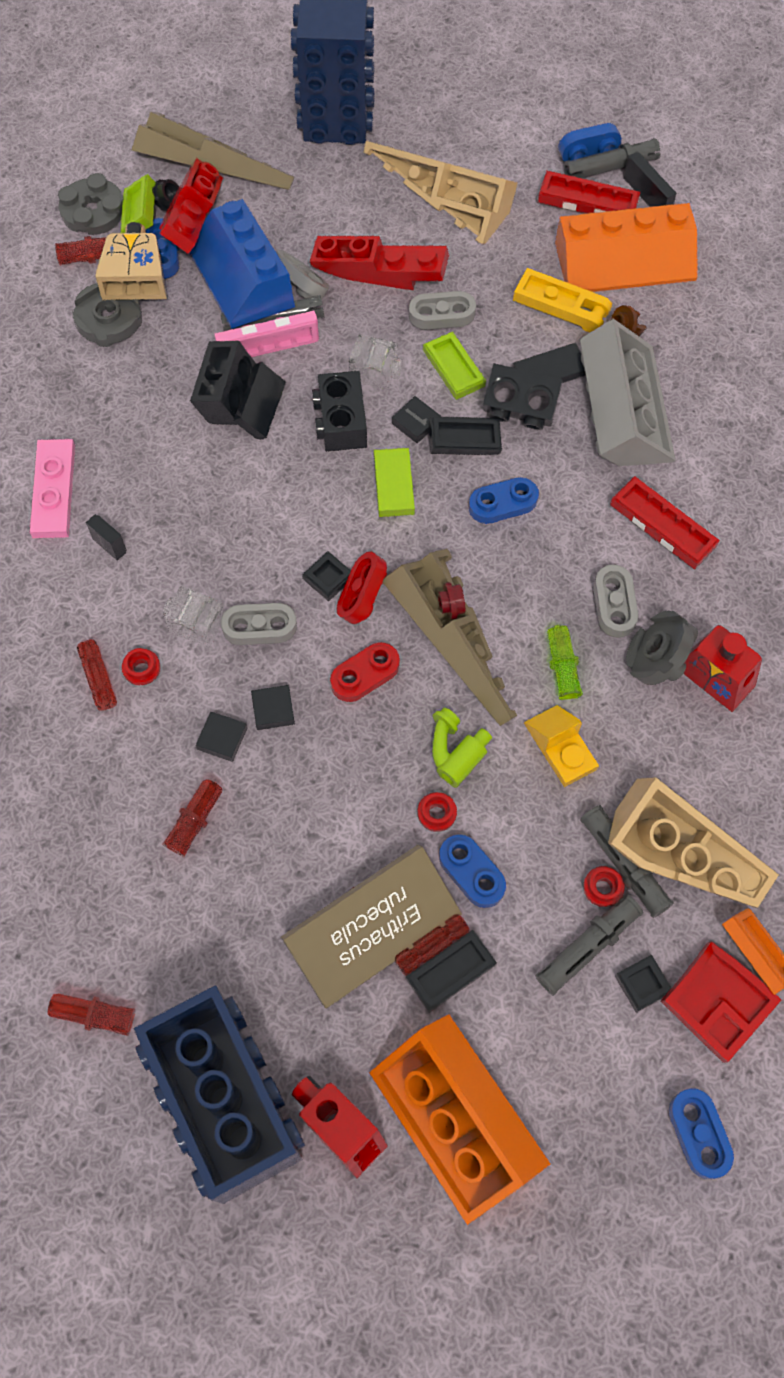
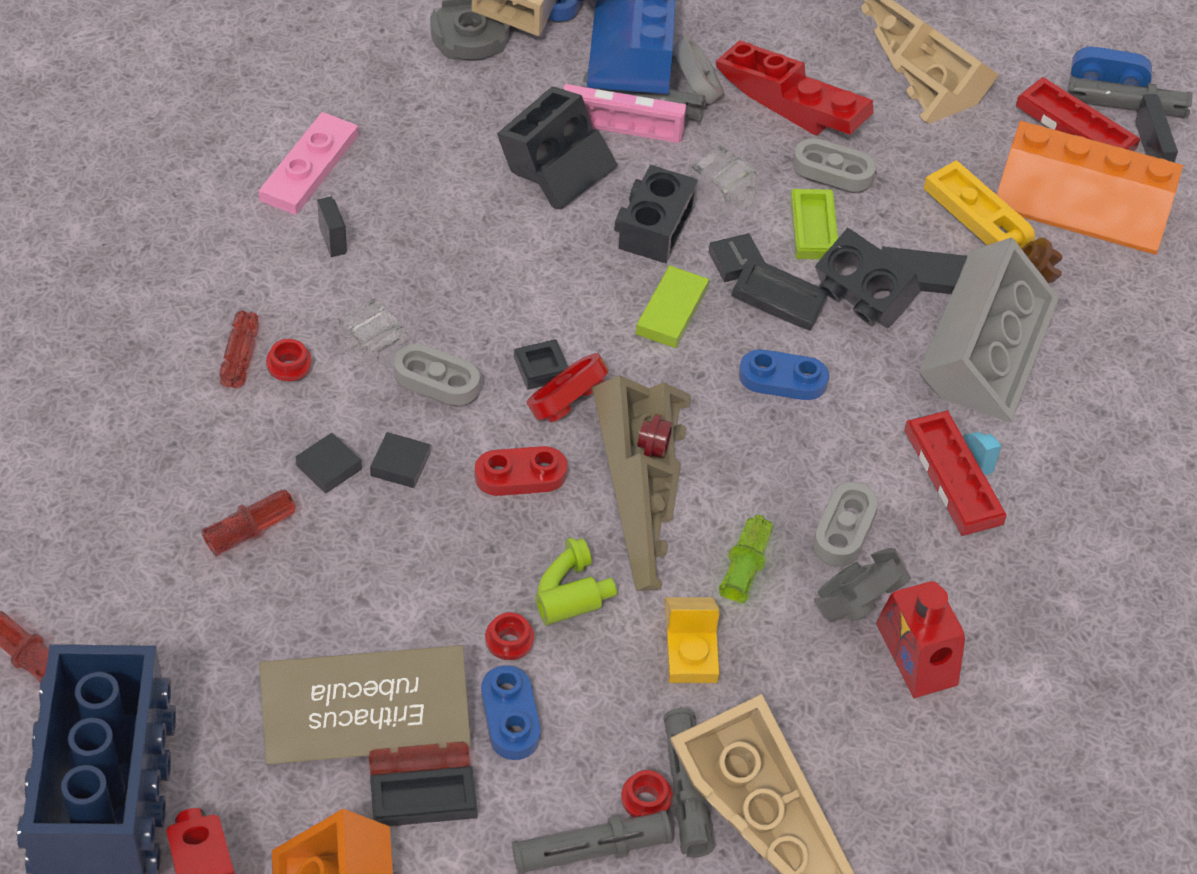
camera: 25 degrees right, 15 degrees down
(676, 495) = (984, 449): none -> medium azure tile

